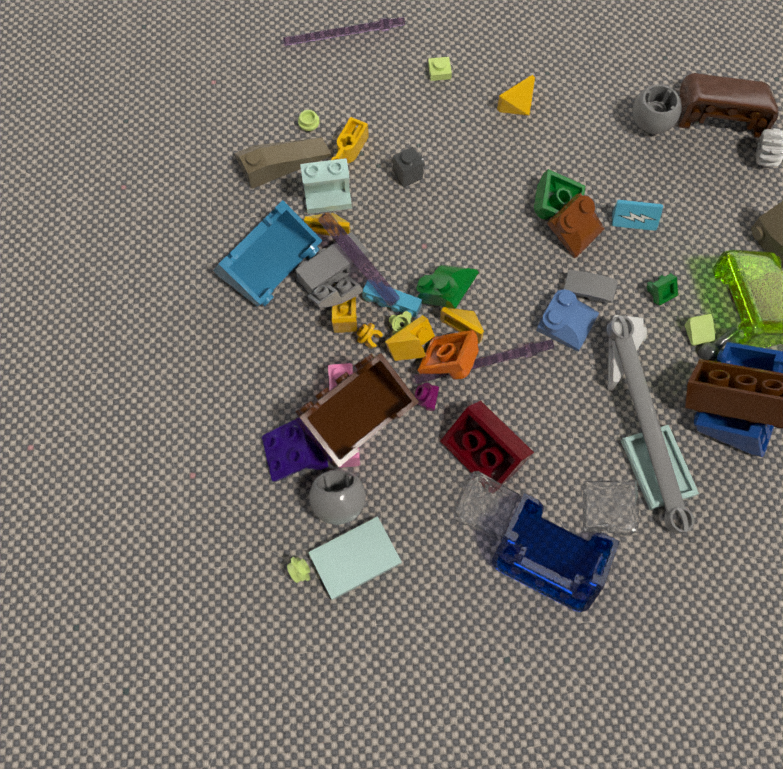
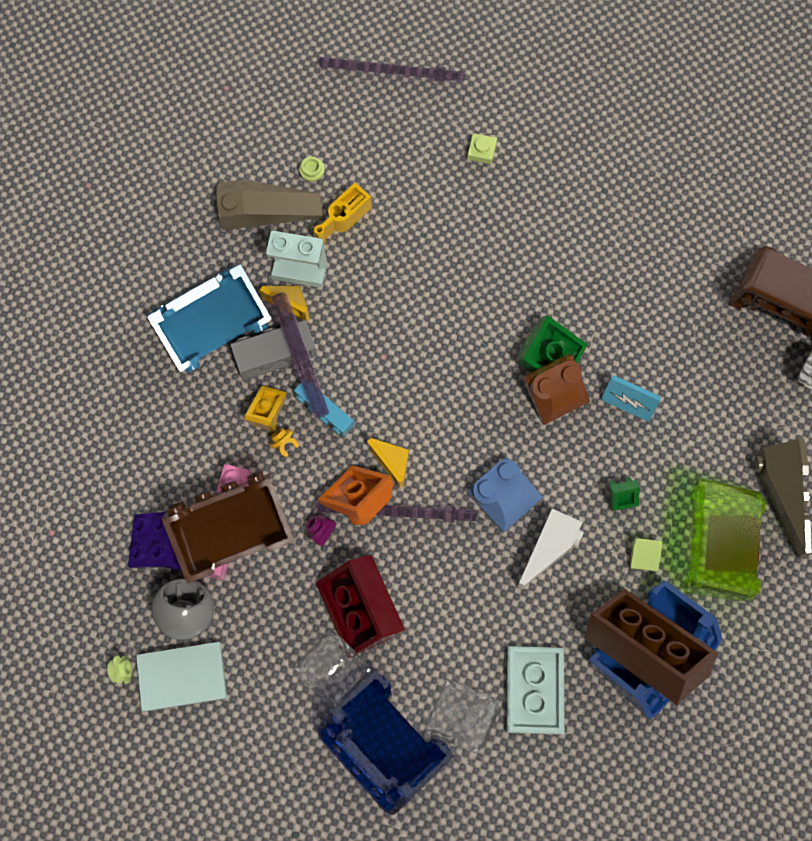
camera: 20 degrees right, 5 degrees up
(330, 296) = (255, 385): light grey slope -> none
(396, 320) = (316, 440): yellowish green plate -> none
(408, 166) = (399, 260): dark grey brick -> none
(409, 341) = (319, 463): yellow slope -> none
(446, 285) = (385, 413): green slope -> none
(518, 98) = (555, 214): yellow slope -> none
(591, 285) = (544, 464): light grey slope -> none
(650, 426) = (539, 642): light grey piece -> none
(657, 109) = (706, 268): light grey wheel -> none
(710, 351) = (646, 580): dark grey bar -> none

